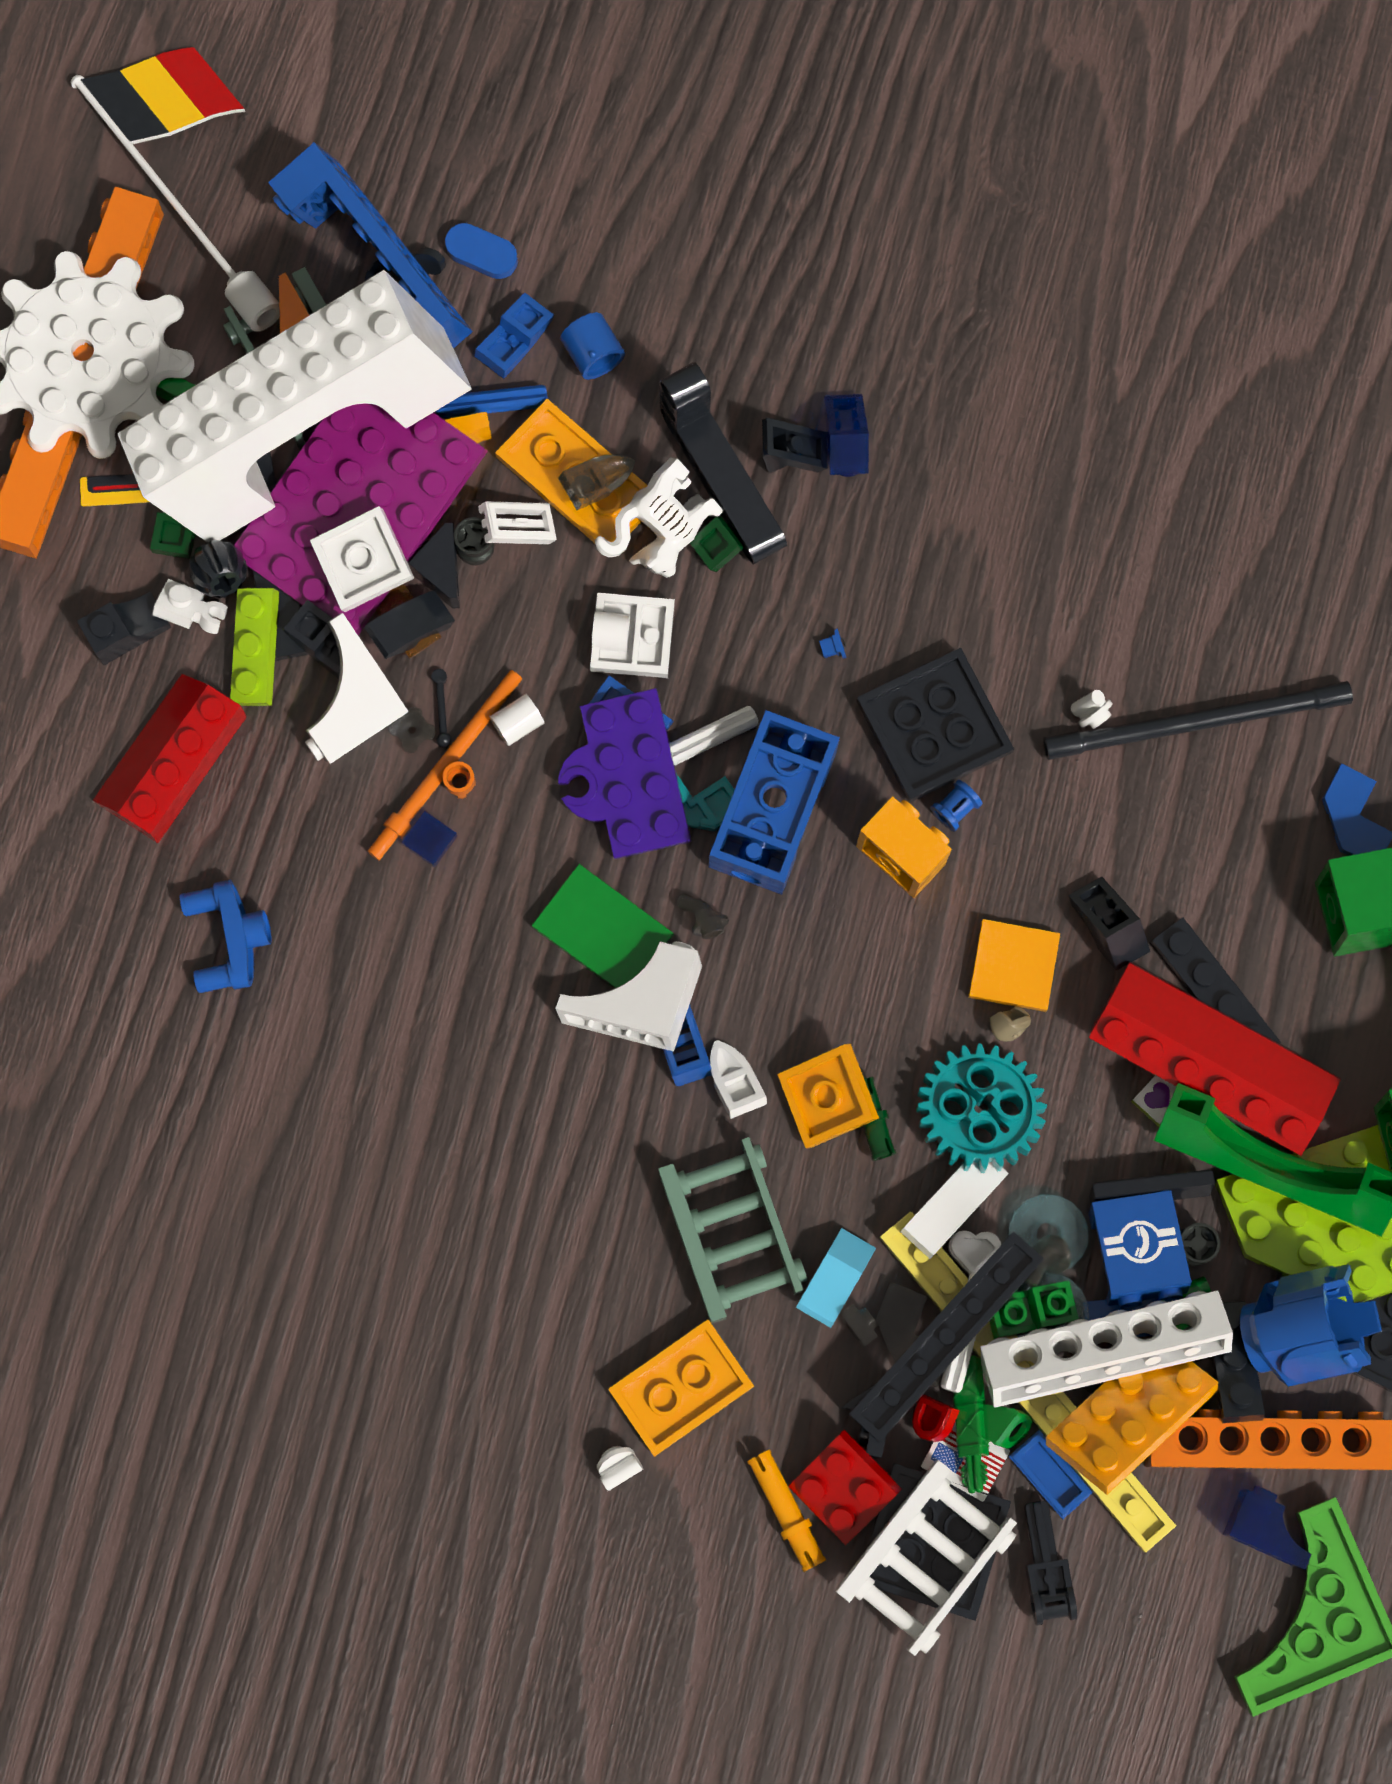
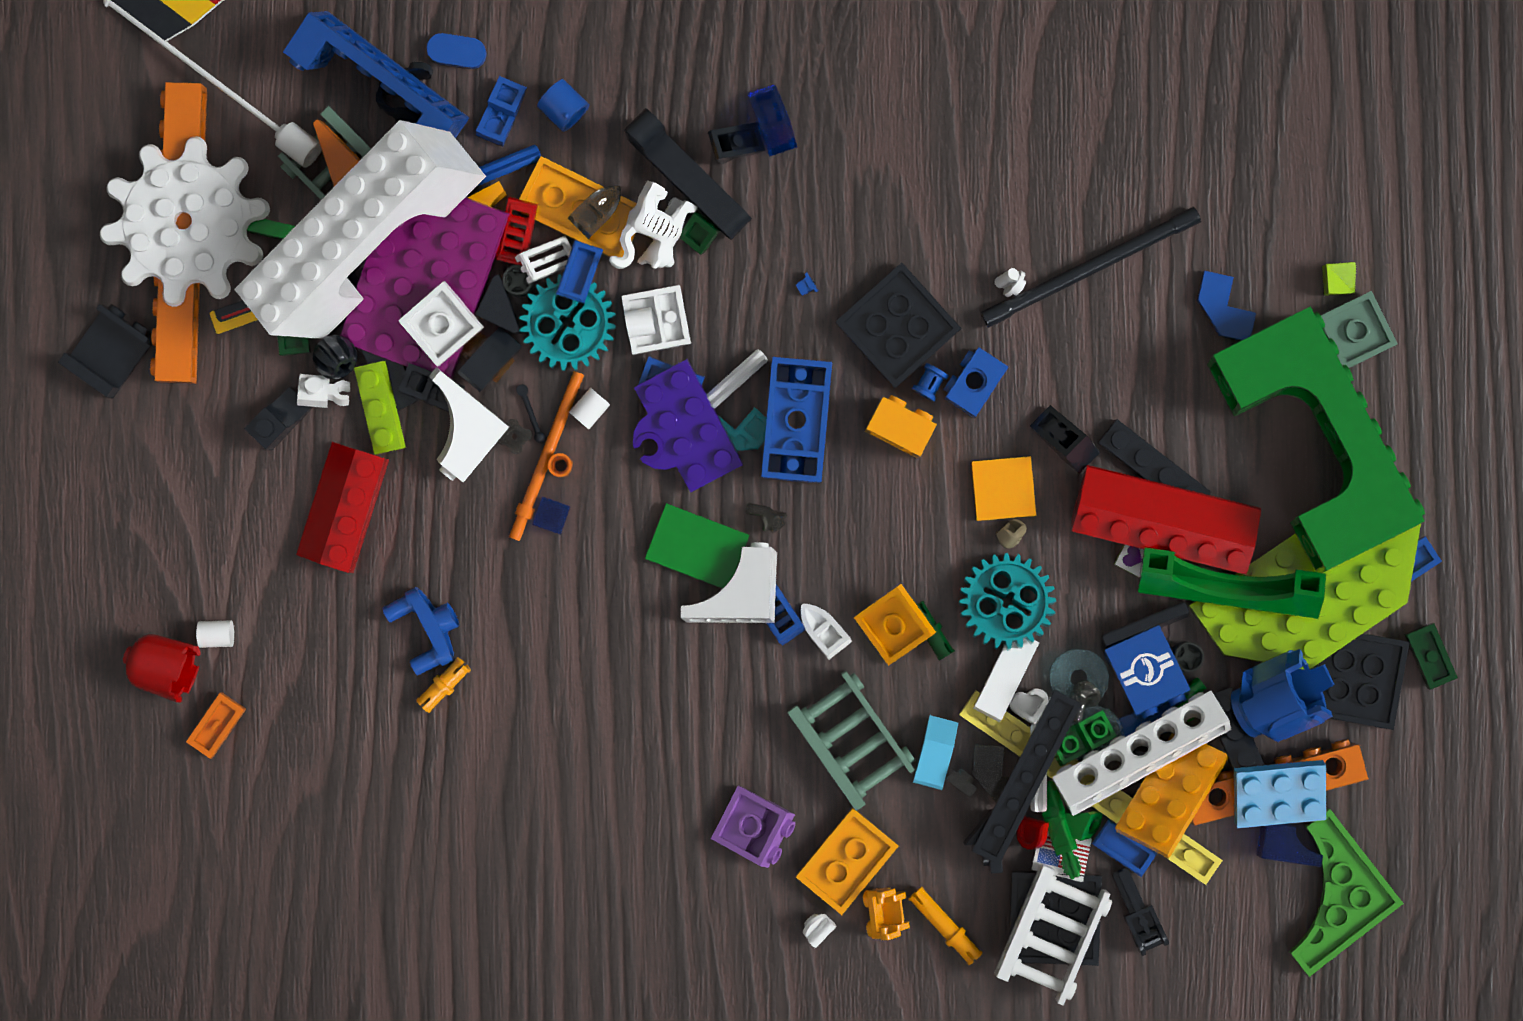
camera: 10 degrees left, 10 degrees up
(227, 1013) = (443, 685): none -> light orange pin
(498, 582) = (590, 338): none -> teal gear
(502, 485) = (507, 254): none -> red slope
(553, 546) = (579, 271): none -> blue tile
(573, 1308) = (754, 827): none -> medium lavender plate
(712, 1470) = (885, 913): none -> light orange piece
(845, 1487) = (982, 899): red plate -> none
(999, 839) = (970, 399): none -> blue brick
(1275, 1454) = (1280, 794): none -> dark azure plate

